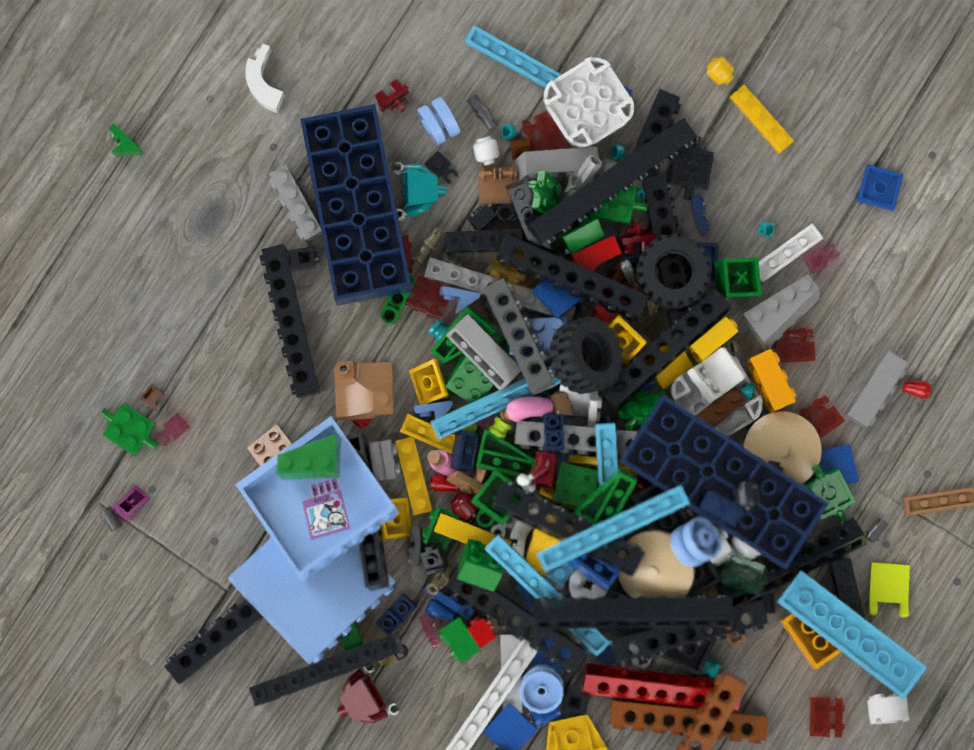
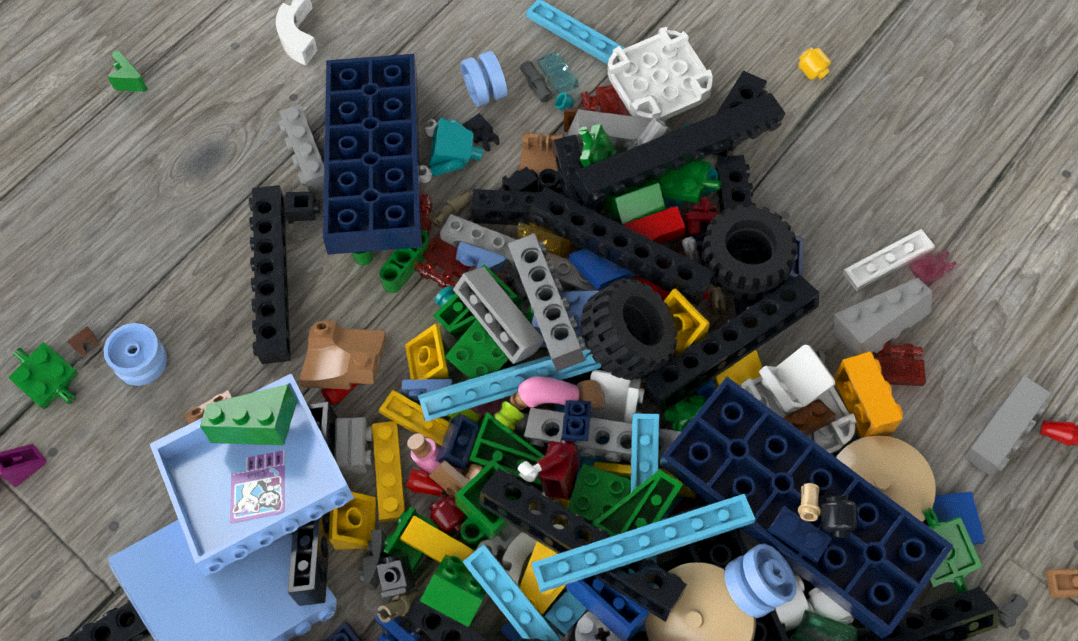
camera: 10 degrees right, 20 degrees down
(174, 428) = (99, 381): clear pink plate -> none
(211, 410) = (135, 354): none -> light blue wheel
(399, 91) = (437, 59): dark red hips -> none
(486, 150) = (535, 116): white head -> none
(499, 100) = (556, 72): none -> clear light blue slope
(692, 168) = (776, 157): black plate -> none
(698, 208) = (780, 199): dark blue slope -> none
(713, 339) = (803, 330): yellow brick -> none
(727, 486) = (809, 506): none -> tan pin
(738, 277) = (830, 272): green brick -> none
(747, 390) = (837, 405): teal hinge -> none
(761, 119) = (861, 118): yellow plate -> none
(766, 225) = (864, 229): teal hinge -> none
(826, 421) = (942, 456): clear red plate -> none
(880, 187) = (1004, 200): blue tile -> none

